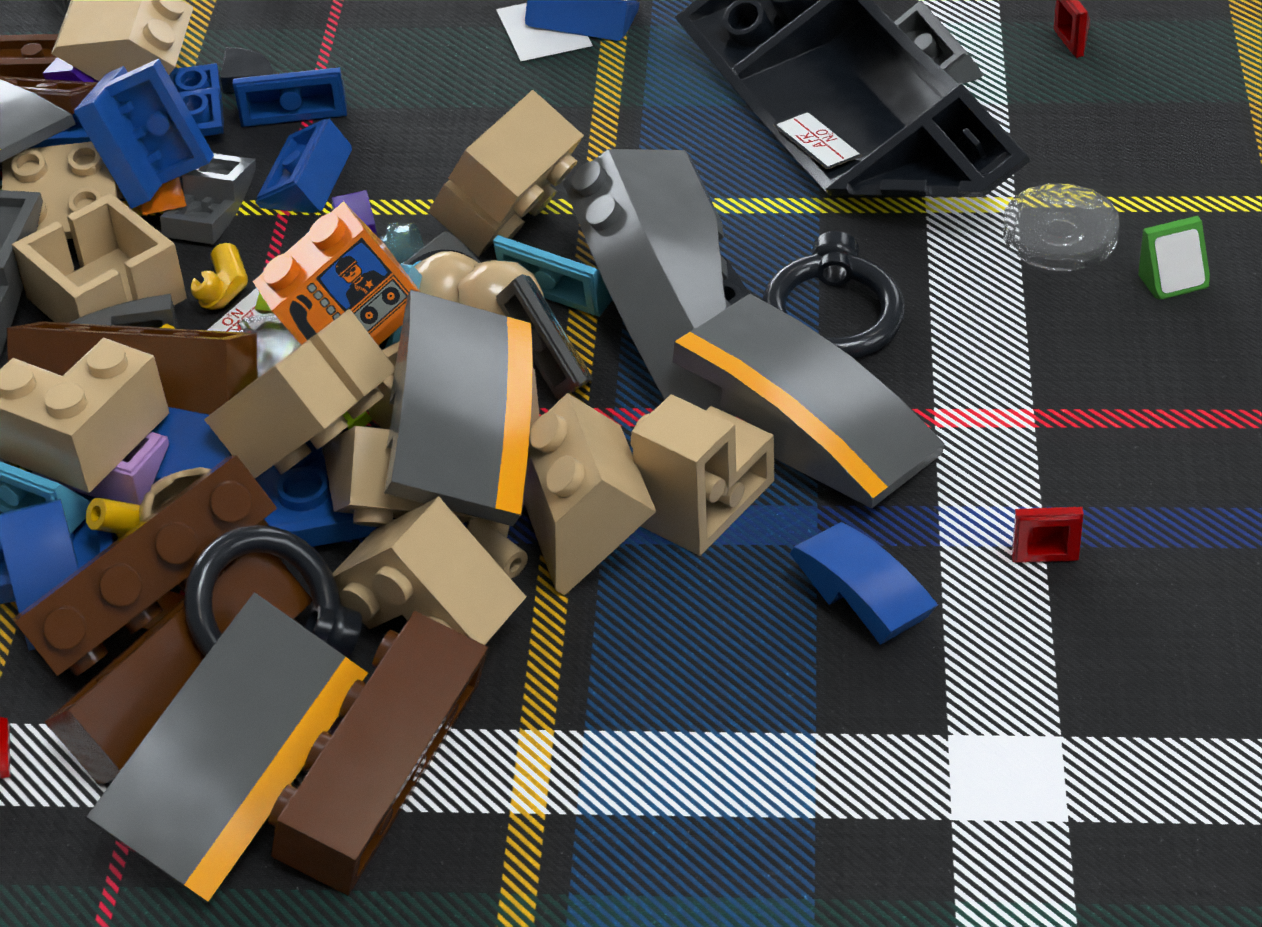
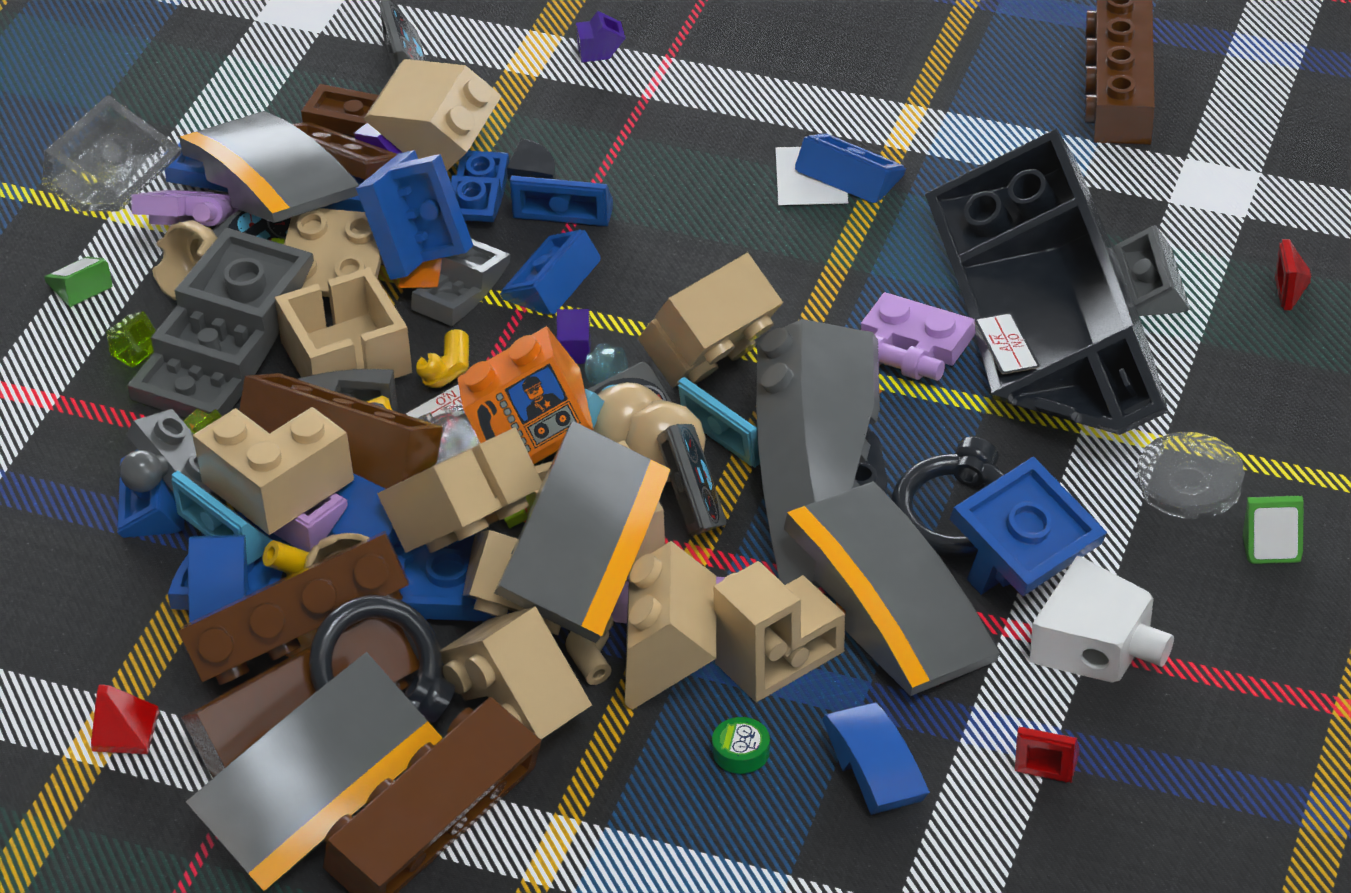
camera: 15 degrees right, 0 degrees up
(705, 603) = (741, 745): none -> green tile
(725, 152) = (917, 336): none -> lavender plate
(930, 309) = (1024, 529): none -> blue bracket
(1041, 391) = (1097, 625): none -> white torso

